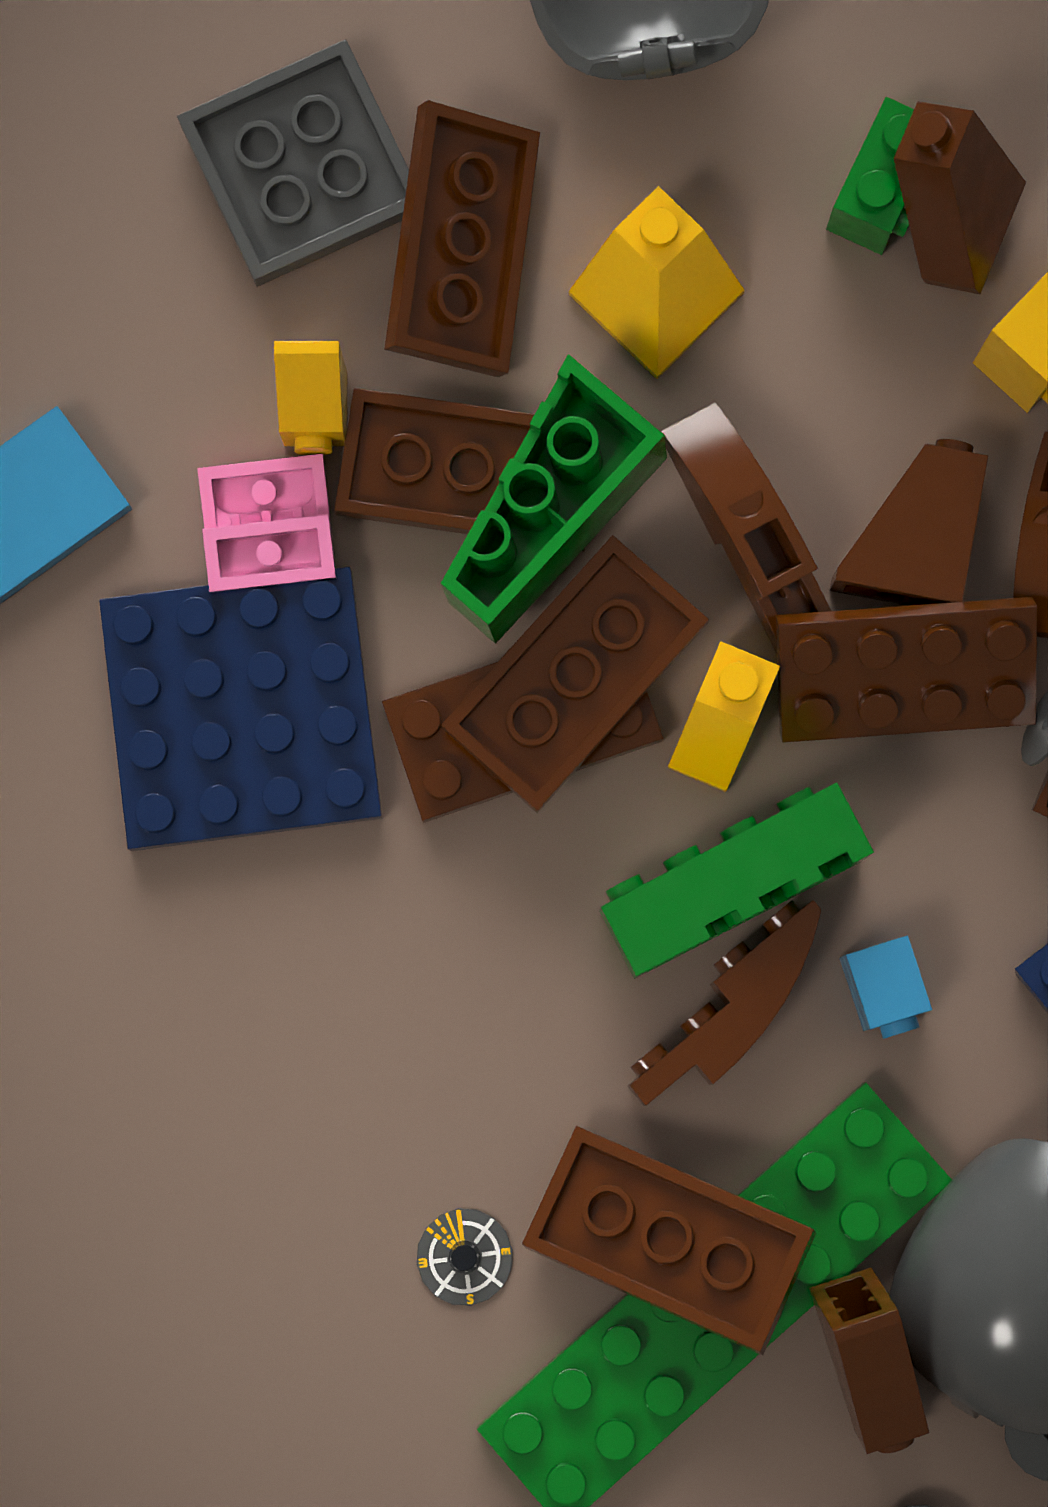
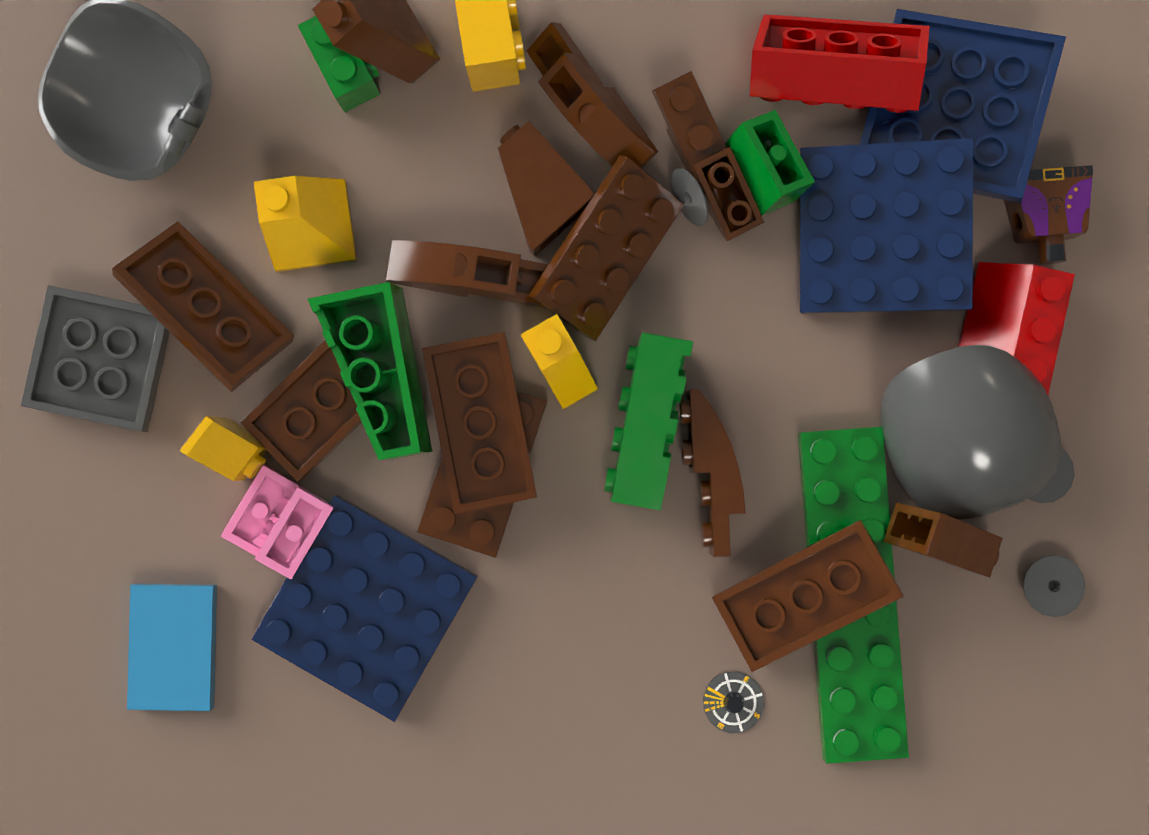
camera: 55 degrees left, 5 degrees up
(886, 986) = (761, 384): dark azure brick -> none

